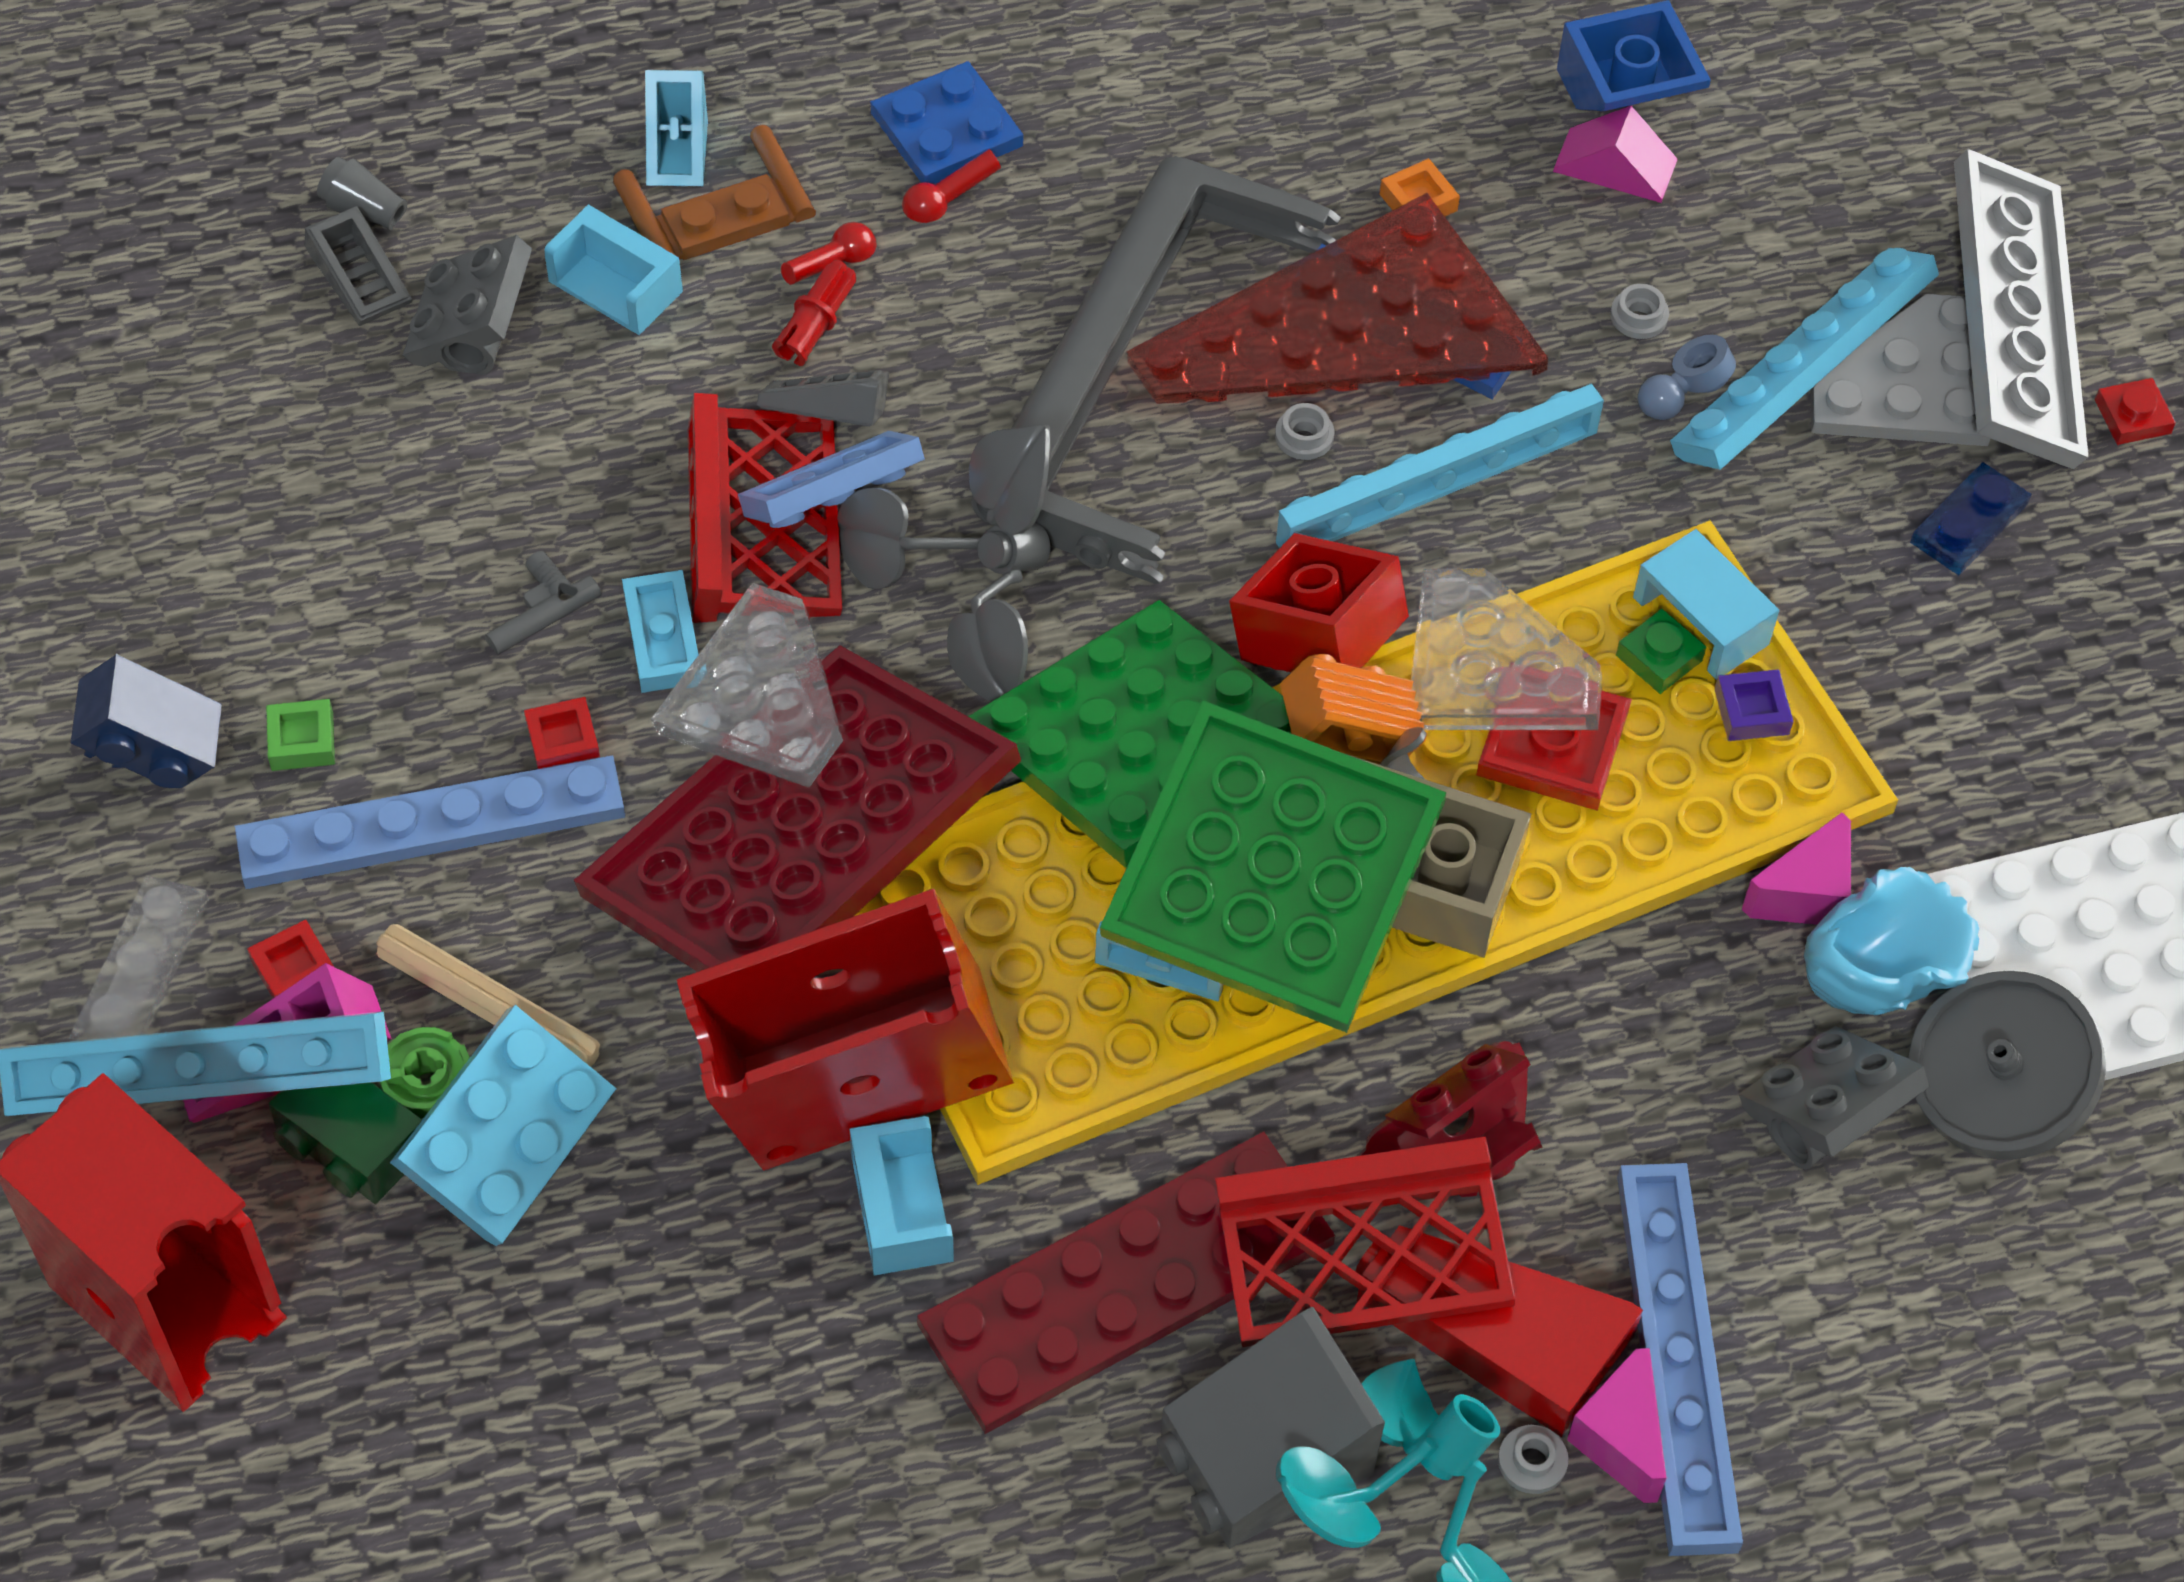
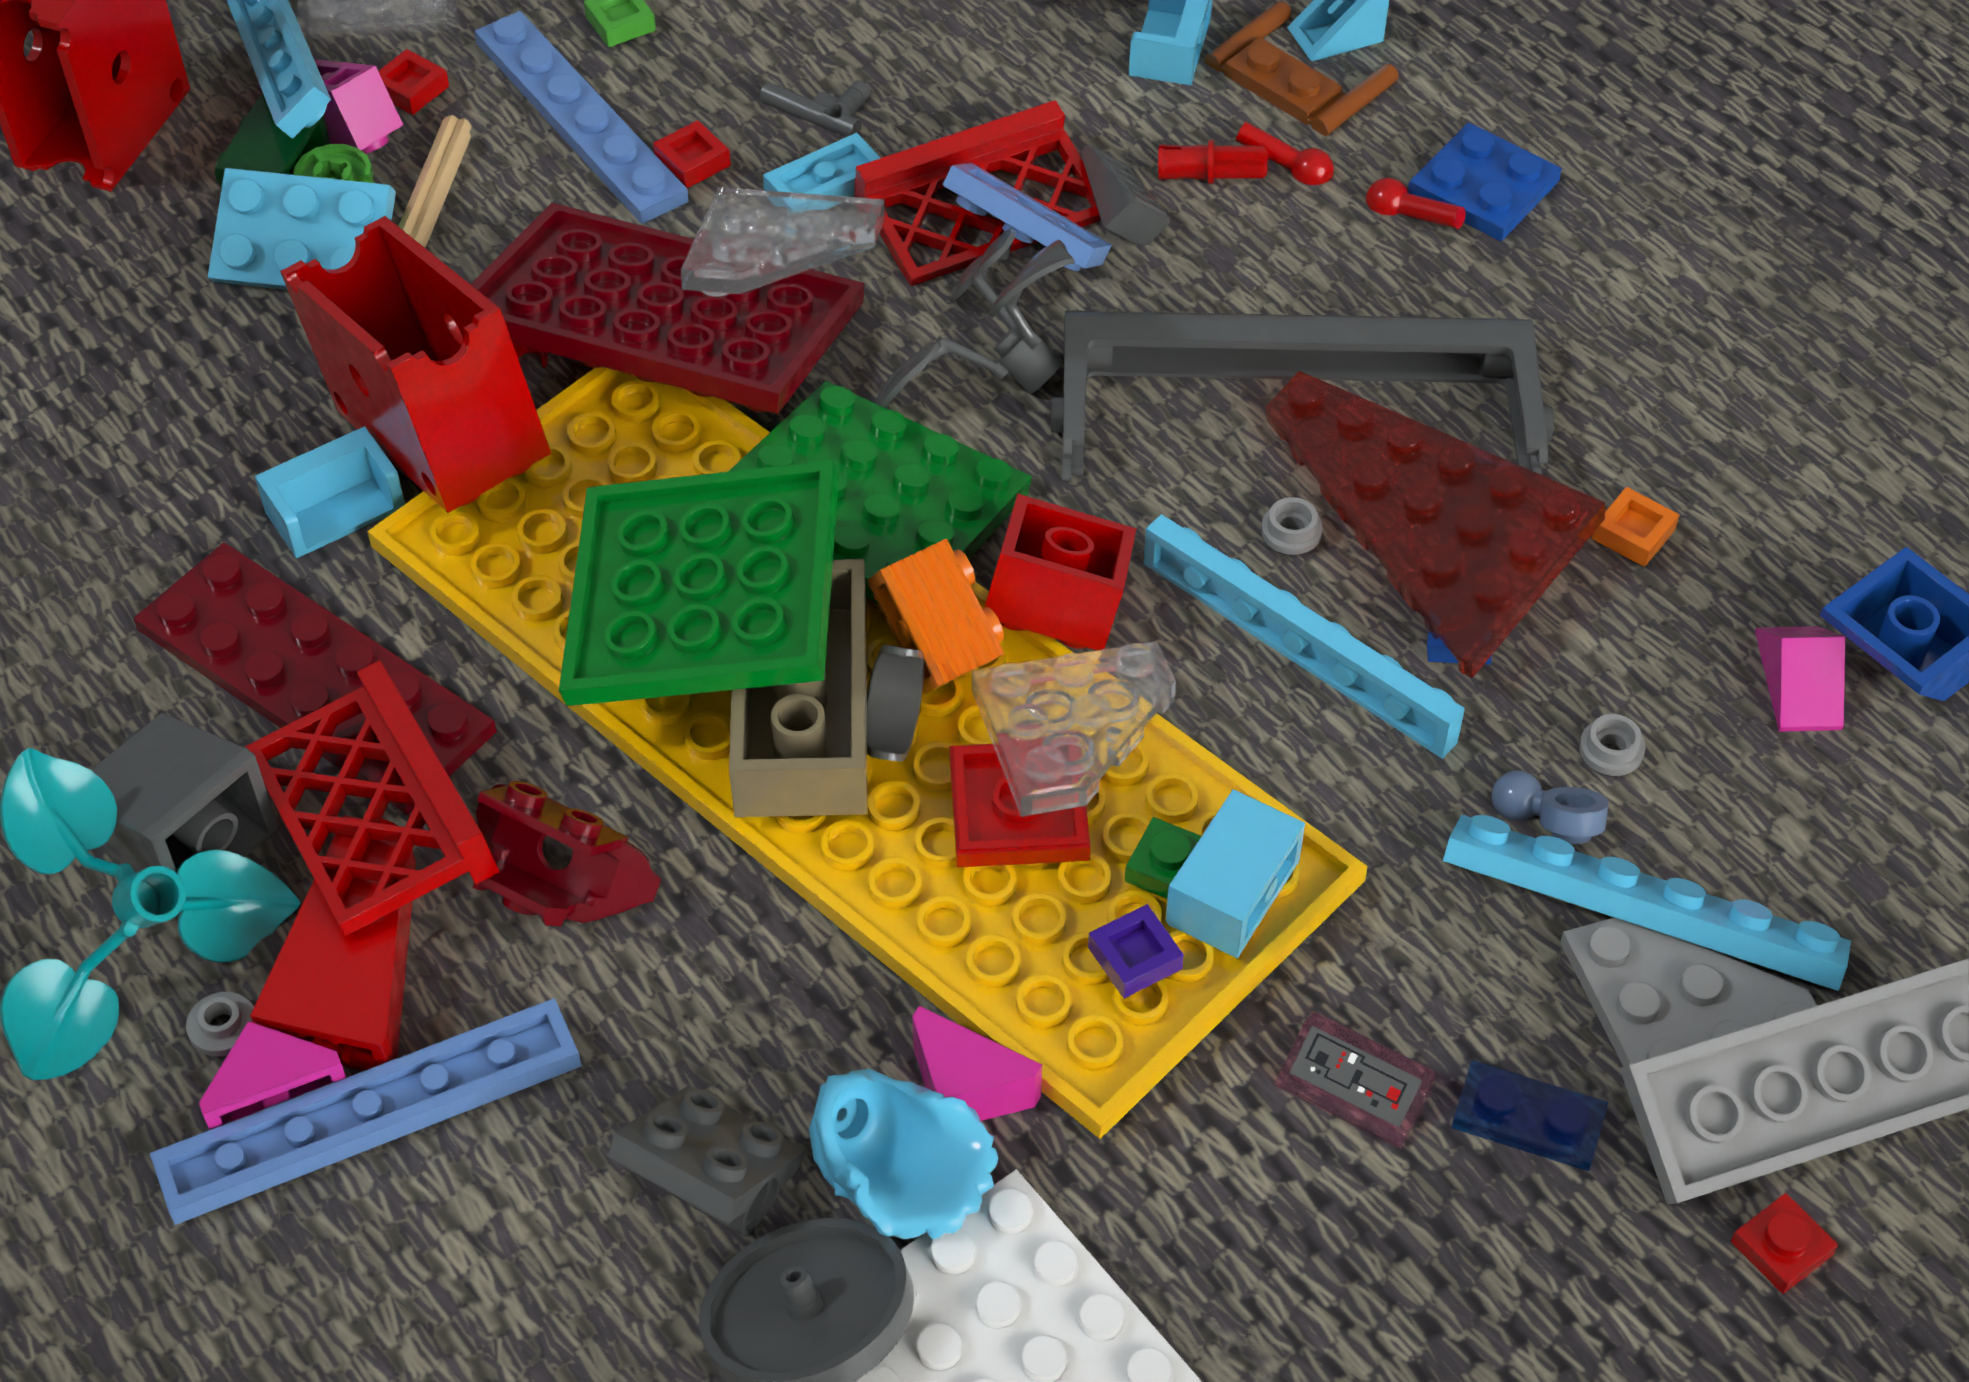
camera: 70 degrees right, 5 degrees down
(1902, 616) = (1356, 1079): none -> slope

